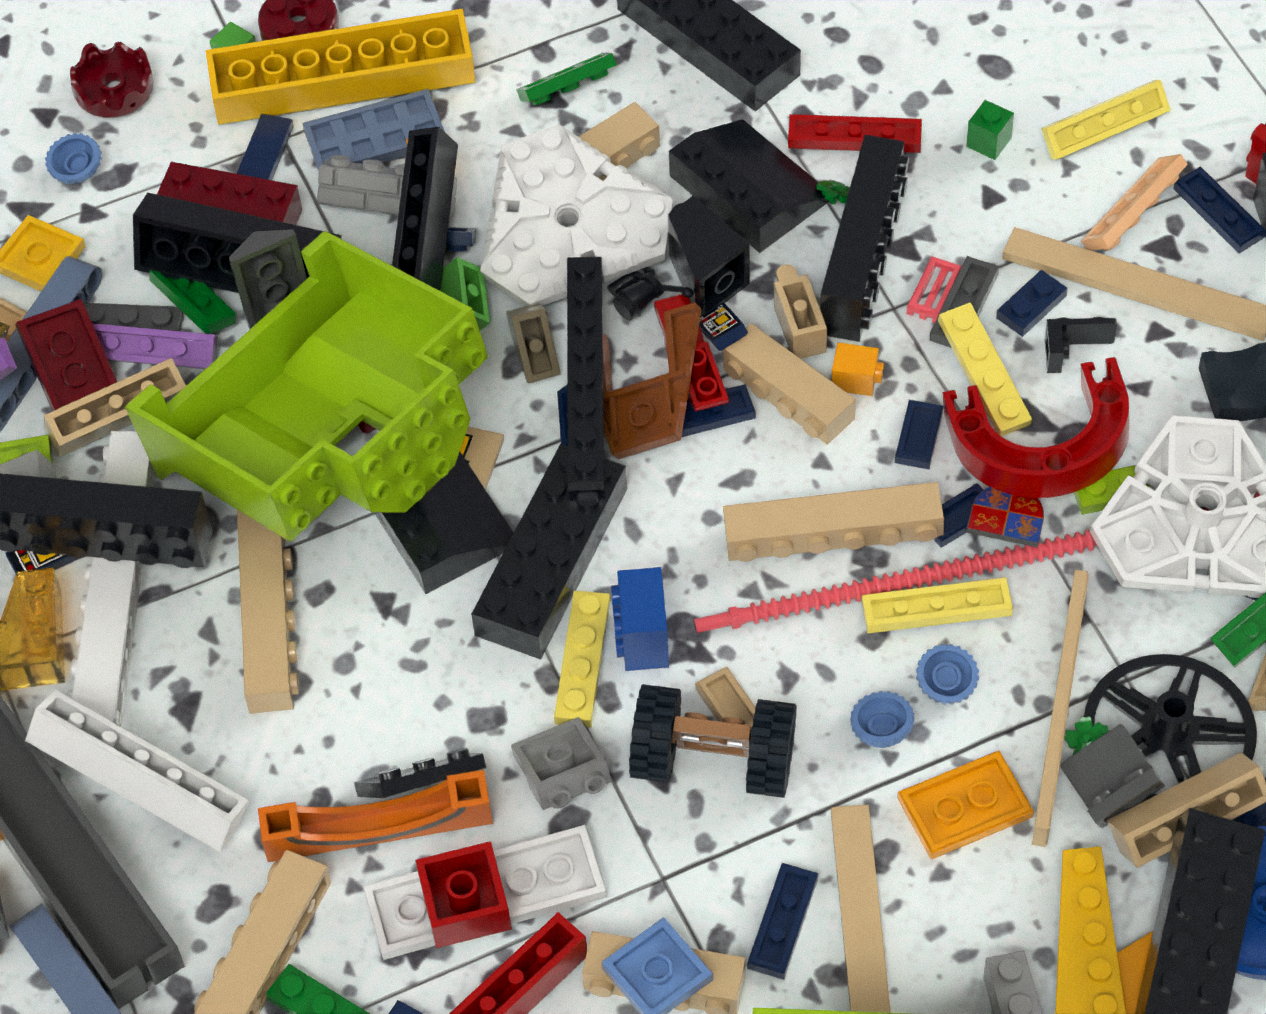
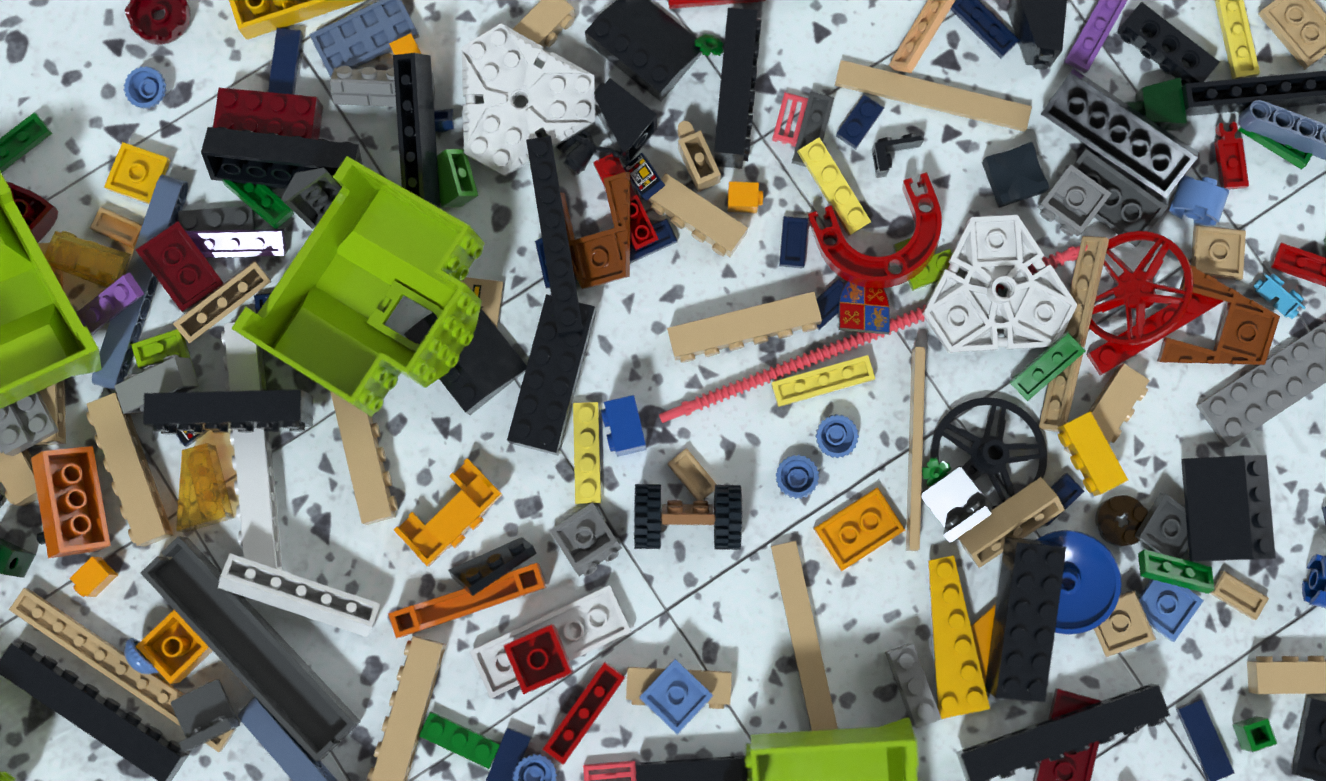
camera: 10 degrees left, 25 degrees up
(376, 710) = (454, 519): none -> light orange bracket
(533, 342) = (511, 203): dark tan slope -> none
(782, 921) = (750, 632): dark blue tile -> none

